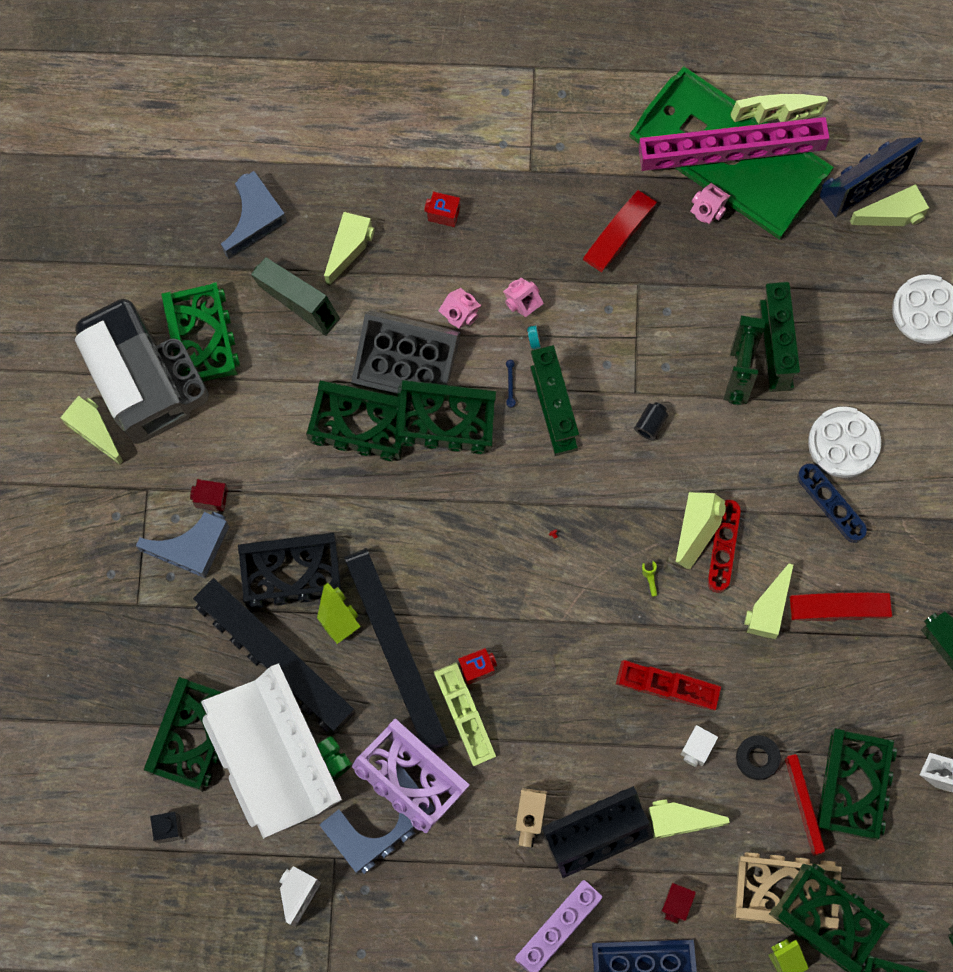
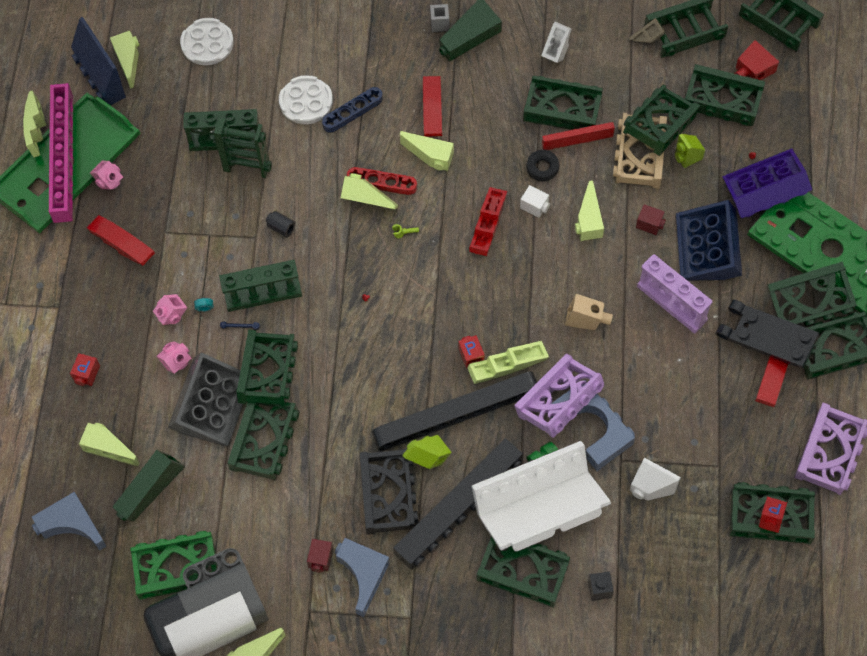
camera: 90 degrees left, 10 degrees down
(597, 832) = (601, 269): black brick -> none

